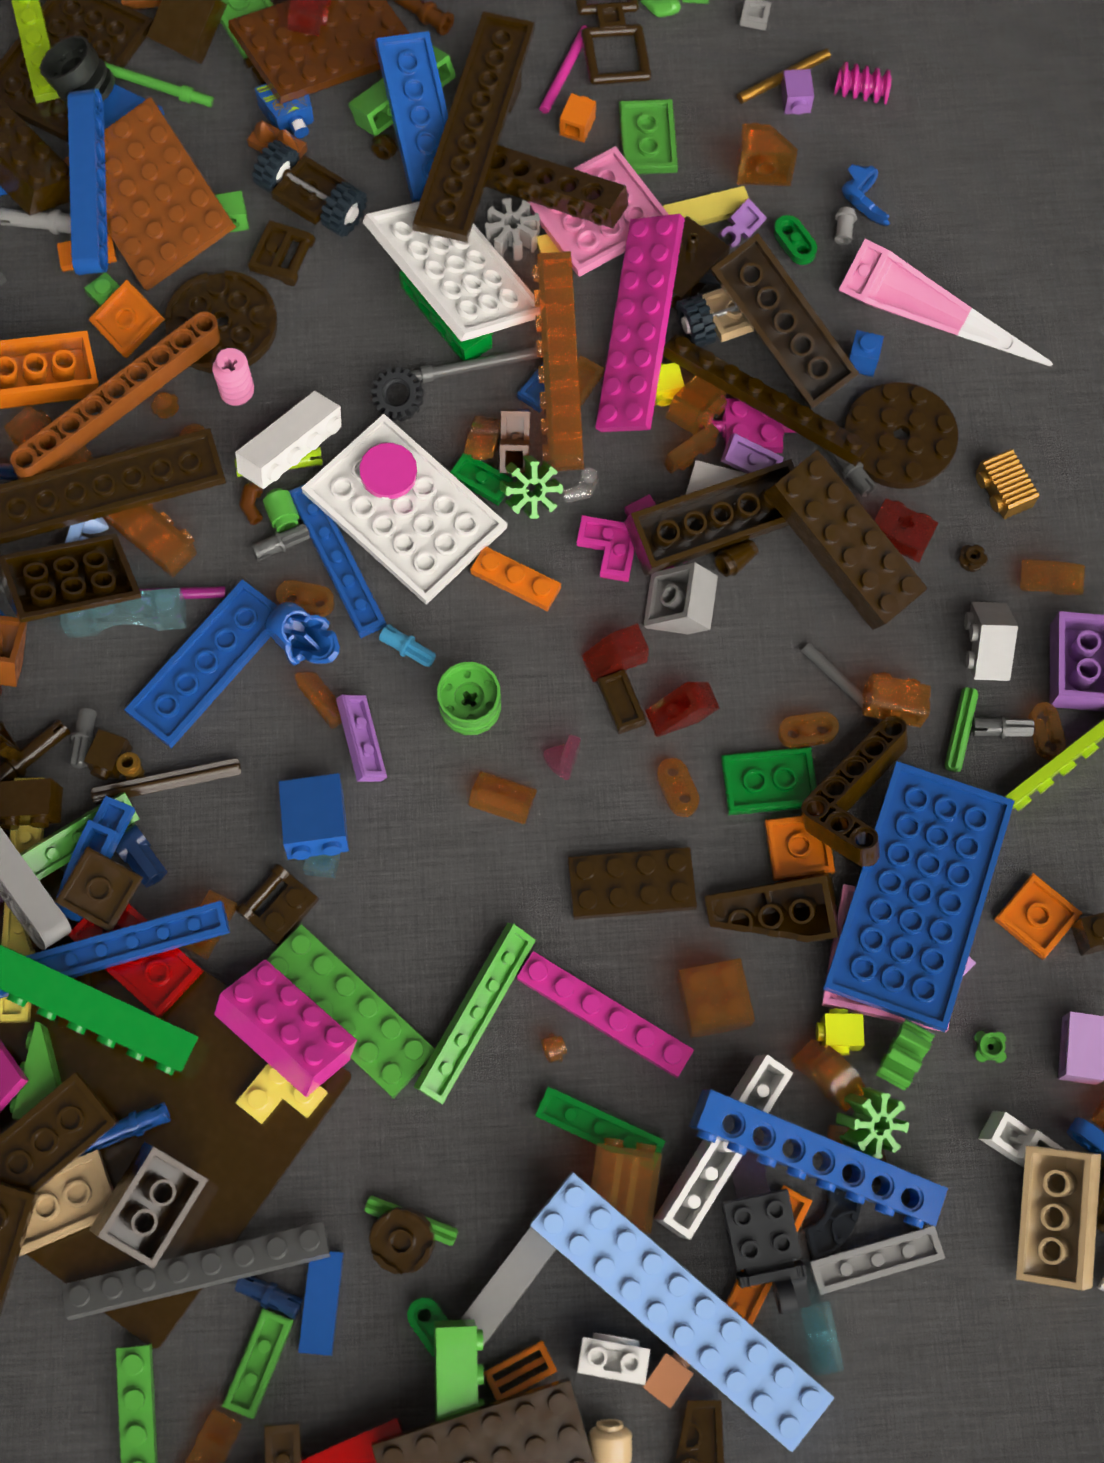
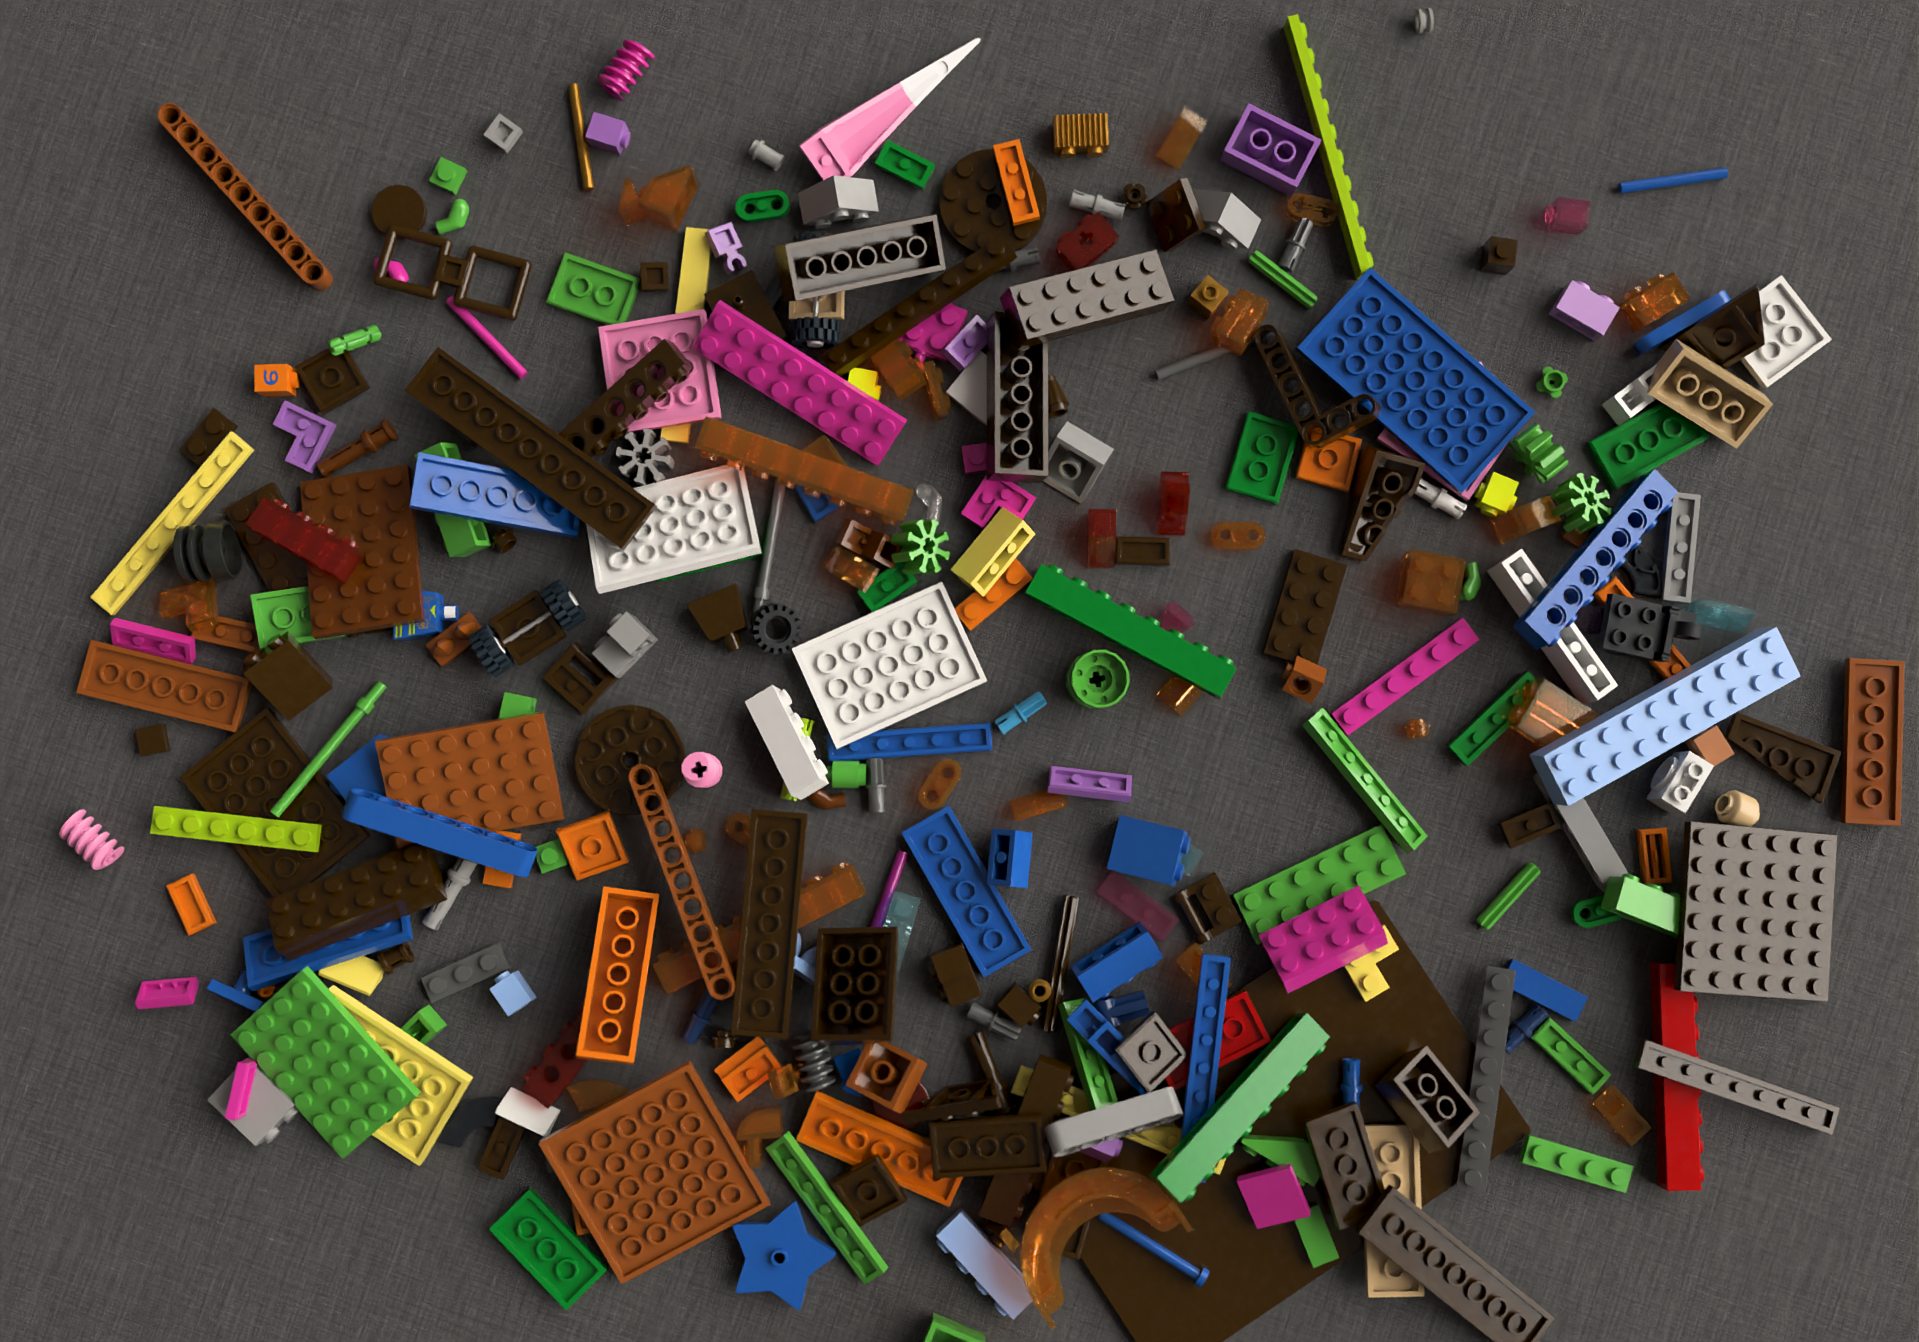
camera: 65 degrees left, 15 degrees up
(75, 67) = (314, 802): pearl dark grey wheel -> none
(119, 680) = (955, 974): none -> dark brown brick
(185, 831) = (1117, 962): none -> blue brick
(254, 686) = (1009, 858): none -> blue brick
(254, 835) = (1137, 905): none -> clear pink tile
(302, 634) = (981, 799): blue head -> none
(329, 273) = (625, 645): none -> light grey brick
(388, 470) = (853, 666): dark pink tile -> none
(390, 344) = (721, 616): none -> dark brown torso
(402, 1240) = (1523, 909): dark brown tile -> none
(498, 1212) = (1530, 825): none -> dark brown plate
(531, 716) = (1130, 631): none -> green brick
(556, 556) = (993, 551): none -> light yellow brick
(556, 905) = (1303, 689): none -> dark orange brick
(577, 117) = (549, 347): orange brick -> none
(685, 176) = (654, 276): none -> dark brown plate
(734, 121) = (630, 204): none -> clear orange slope
(734, 1046) = (1472, 582): none -> bright green arm
(807, 731) = (1233, 407): clear orange plate -> none
(810, 975) = (1440, 499): none -> white pin
(834, 293) = (838, 200): none -> light grey brick
(855, 192) = (730, 120): blue hair -> none
(866, 352) = (905, 197): blue brick -> none
(896, 343) = (905, 165): none -> green plate
(906, 659) = (1207, 297): none -> pearl gold brick
(928, 439) = (1016, 182): none -> orange plate
(947, 526) = (1097, 203): none -> light grey pin
(971, 596) = (1175, 215): none -> dark brown plate
(974, 1175) = (1644, 443): none -> green tile
(1038, 916) = (1462, 293): orange tile -> none

